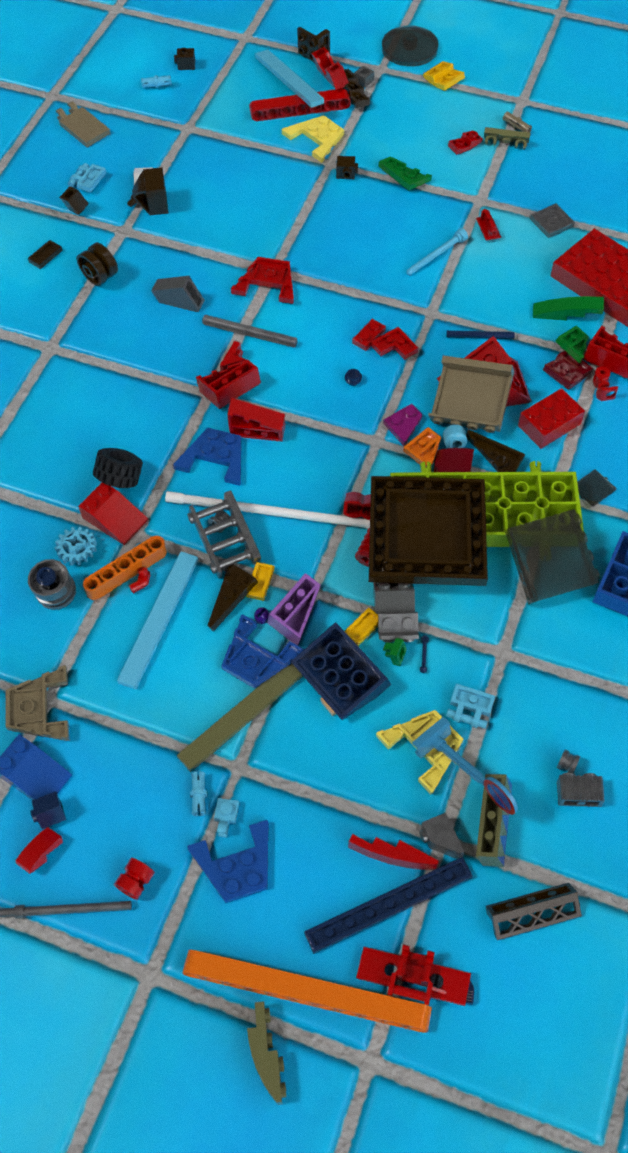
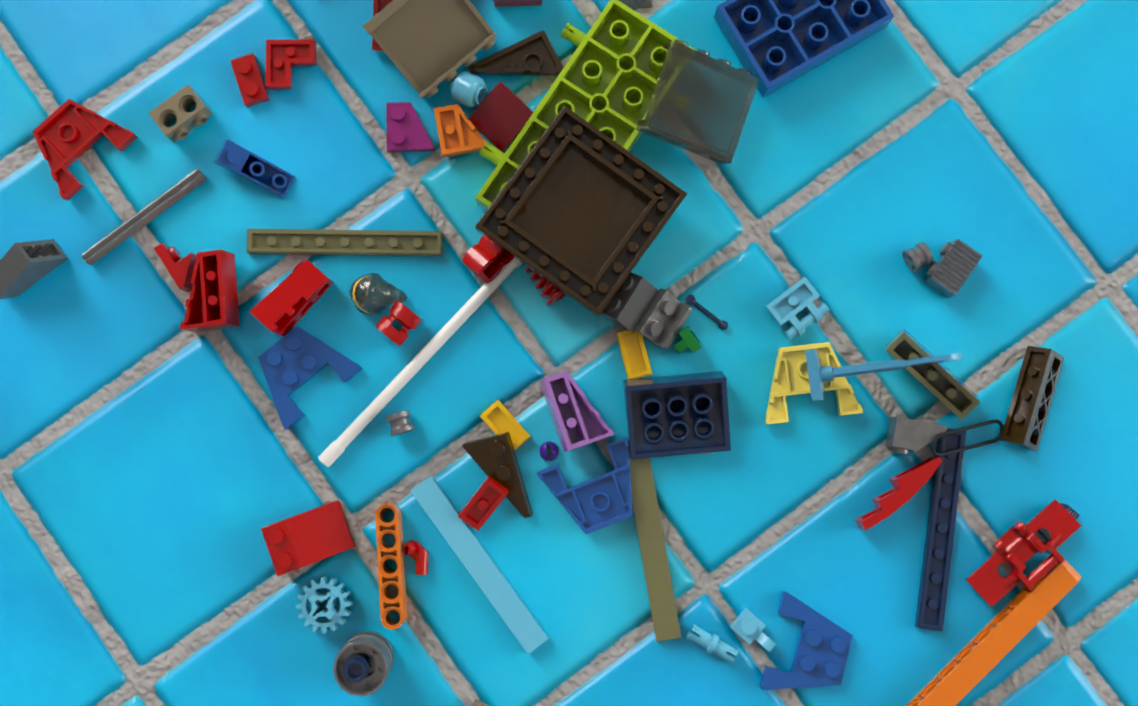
camera: 55 degrees left, 25 degrees up
(117, 467) = (253, 501): black tyre -> none
(200, 594) = (483, 503): none -> red plate
(243, 535) = (418, 409): flat silver fence -> none
(282, 483) = (404, 316): none -> red wheel
(290, 462) = (374, 294): none -> clear smoke hair
(312, 434) = (345, 242): none -> olive tile
(318, 362) = (253, 168): none -> blue slope
(322, 313) = (177, 108): none -> dark tan brick
(353, 377) = (301, 142): dark blue plate -> none
(460, 882) = (964, 429): none -> black piece

